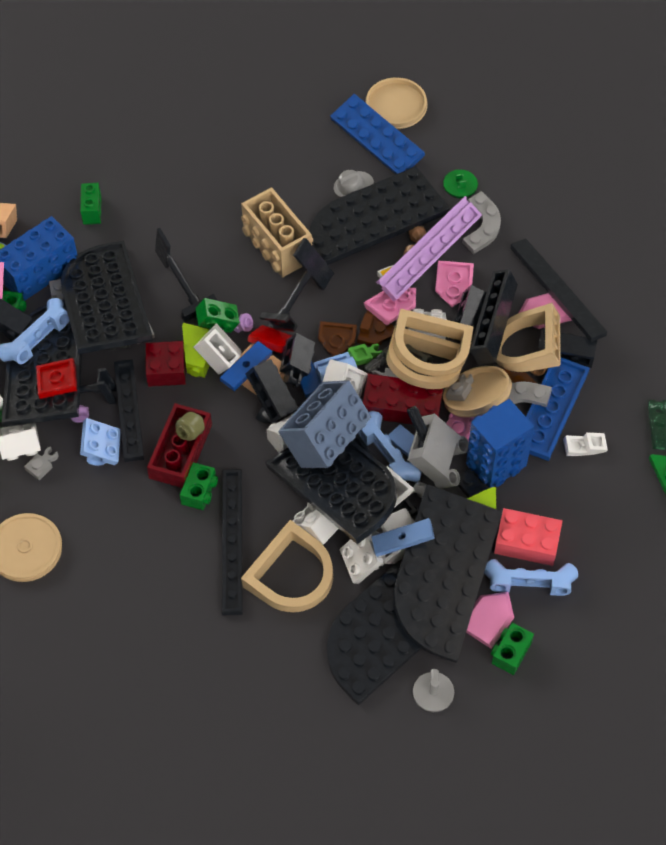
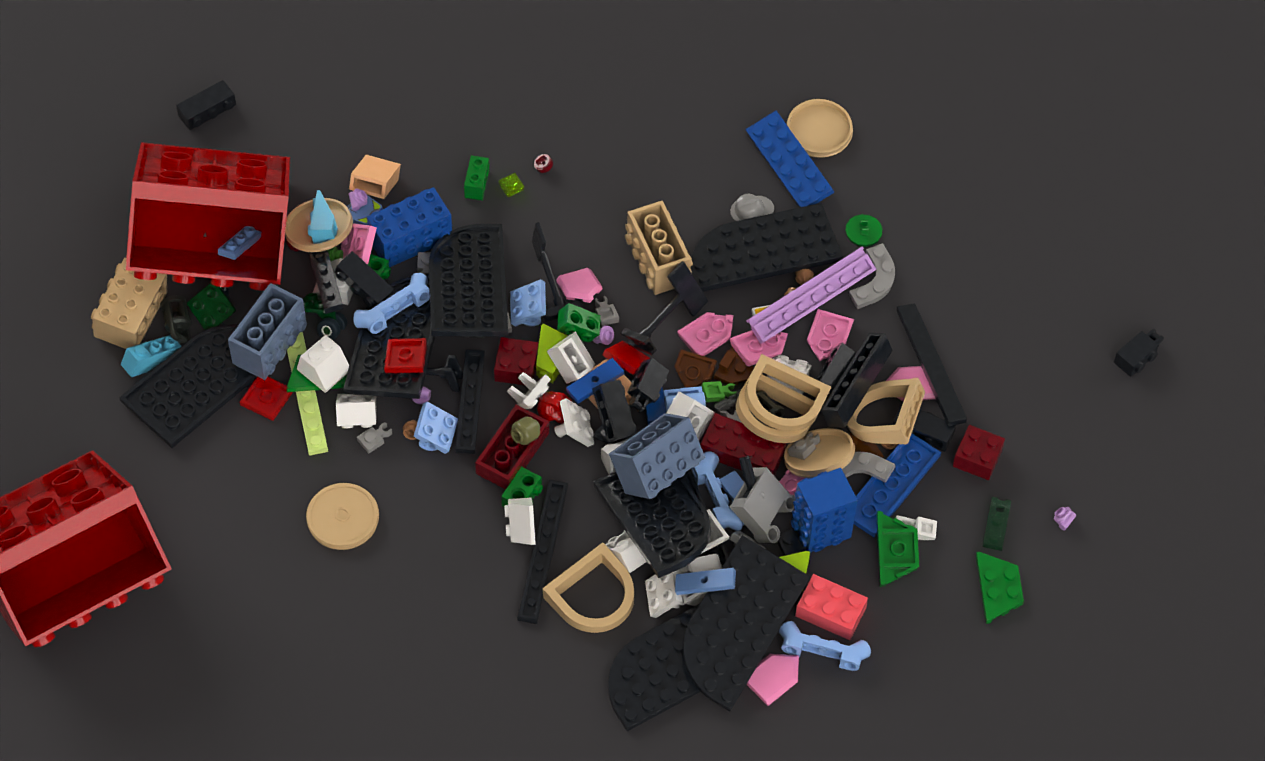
camera: 10 degrees right, 0 degrees up
(74, 448) = (409, 429): none -> medium nougat plate
(124, 204) = (511, 184): none -> clear neon green plate
(150, 179) = (543, 163): none -> dark red tile
(165, 308) = (528, 304): none -> light blue plate
(189, 385) = (535, 390): none -> white plate
(205, 515) = (520, 521): none -> white slope
(210, 281) = (579, 284): none -> bright pink tile
(213, 398) = (550, 407): none -> red hair
(236, 410) = (575, 423): none -> white plate
(243, 301) = (608, 312): none -> light grey plate
(340, 302) = (706, 333): none -> bright pink tile
(433, 691) = (701, 733): light grey shield -> none
(515, 649) = (791, 712): green brick -> none
(574, 467) = (896, 548): none -> green wing
(625, 361) = (978, 452): none -> dark red brick

